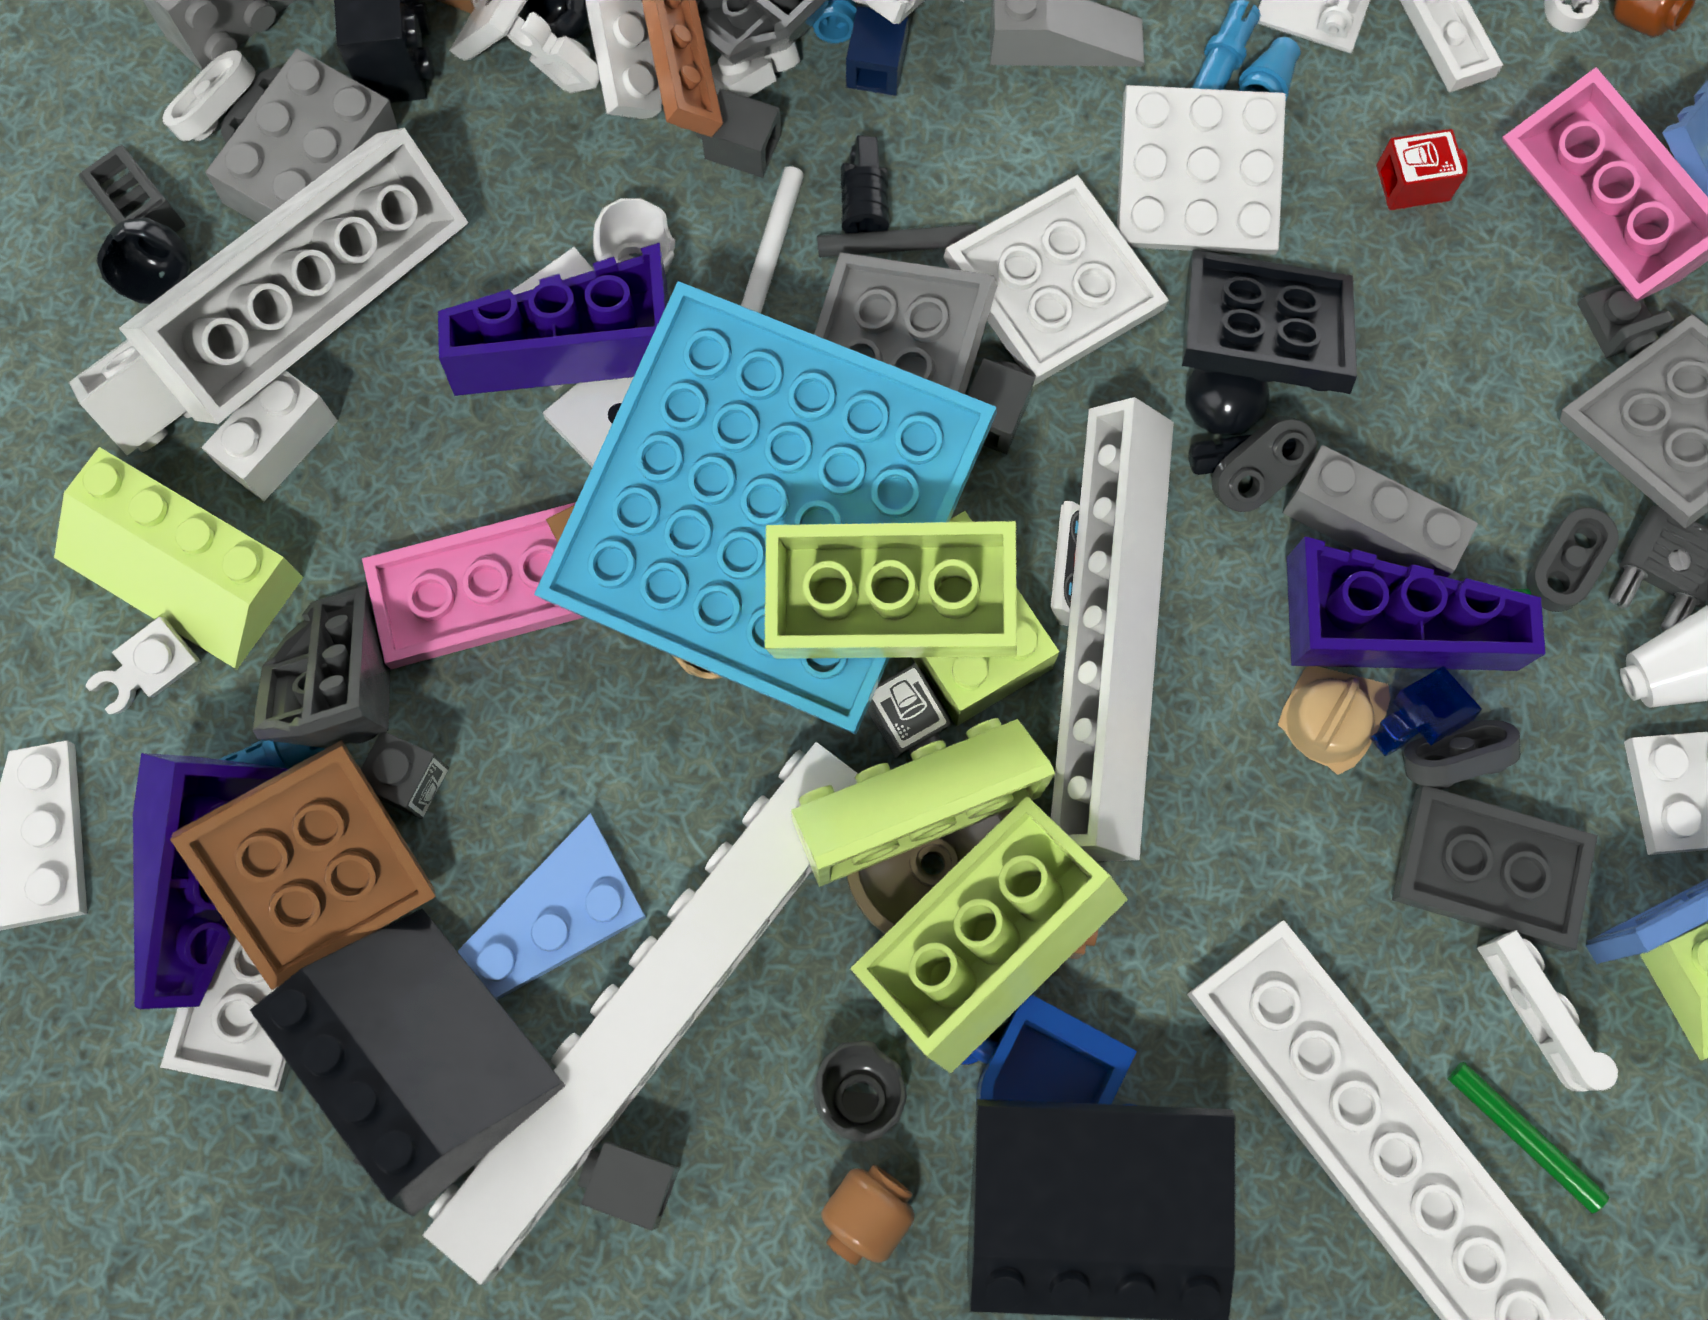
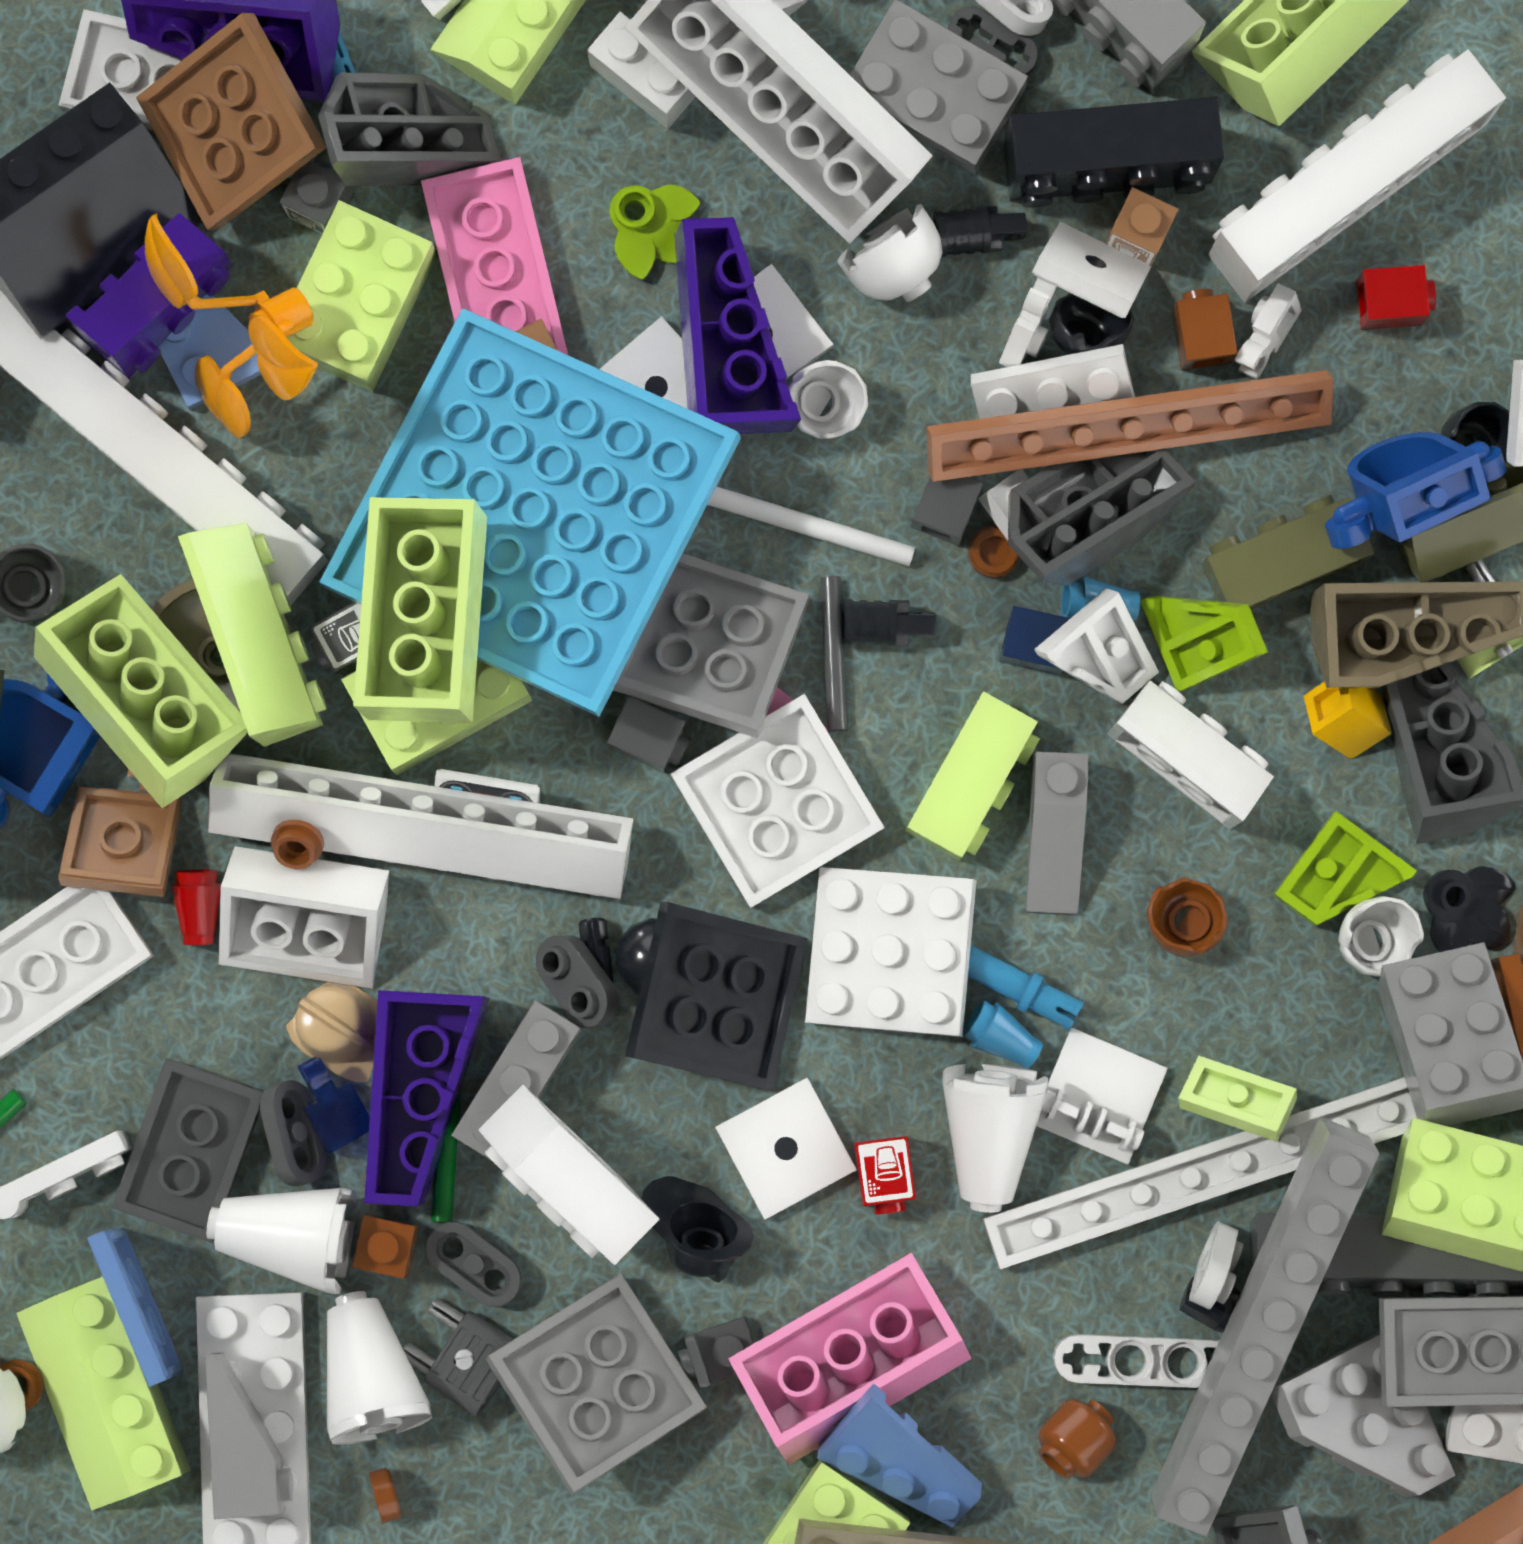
camera: 90 degrees right, 10 degrees up
(450, 422) = (652, 236): none -> lime plate
(457, 122) = (978, 229): none -> black hinge
(482, 172) = (896, 257): none -> white cylinder
(515, 948) = (135, 315): none -> dark purple wedge
(517, 726) = (360, 293): none -> yellowish green brick
(596, 754) = (274, 320): none -> light orange plant
(792, 97) = (991, 554): none -> dark orange tile
(1017, 103) = (974, 777): none -> yellowish green brick
(1151, 750) = (296, 844): none -> dark orange plate
(1158, 965) = (119, 842): none -> medium nougat tile
(1217, 873) = (197, 904): none -> red cone
(1220, 752) = (302, 921): none -> white slope
(1366, 69) = (991, 1129): none -> white cone
(1406, 267) = (785, 1148): none -> white tile
(1491, 442) = (565, 1177): none -> white brick
(1514, 316) = (698, 1227): none -> black piece
(1576, 644) = (386, 1246): none -> dark orange brick
(1583, 740) = (288, 1234): none -> white cone

